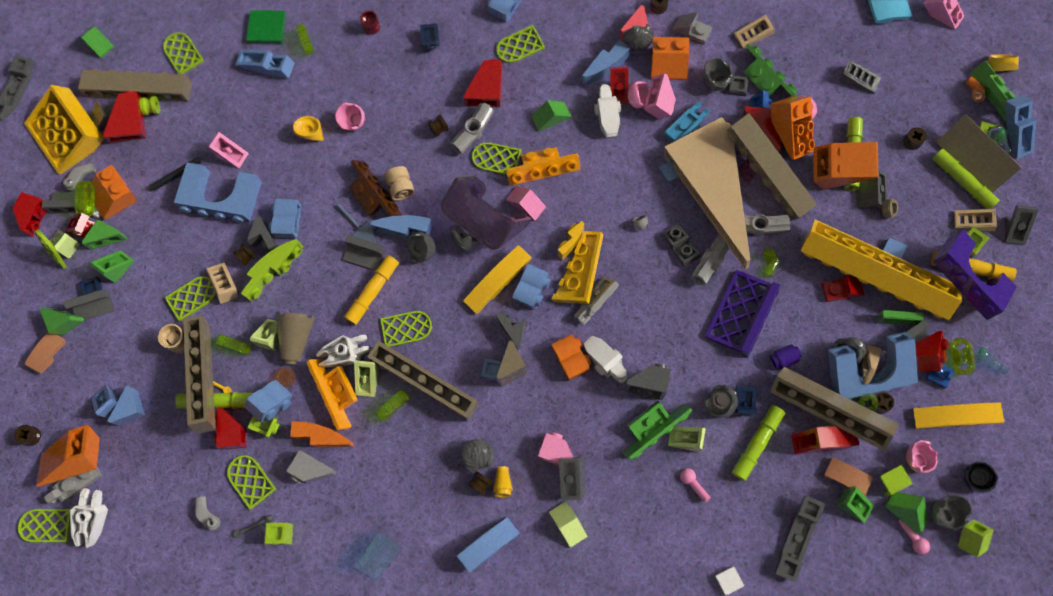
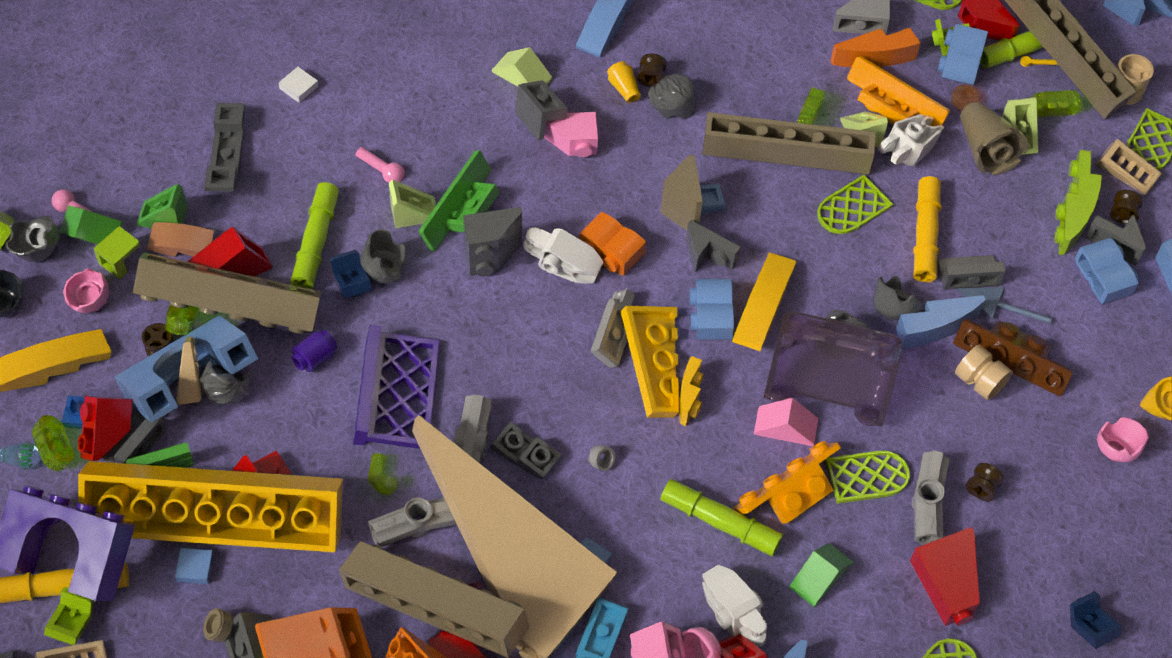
camera: 145 degrees right, 15 degrees down
(590, 163) = (721, 517): none -> lime piece

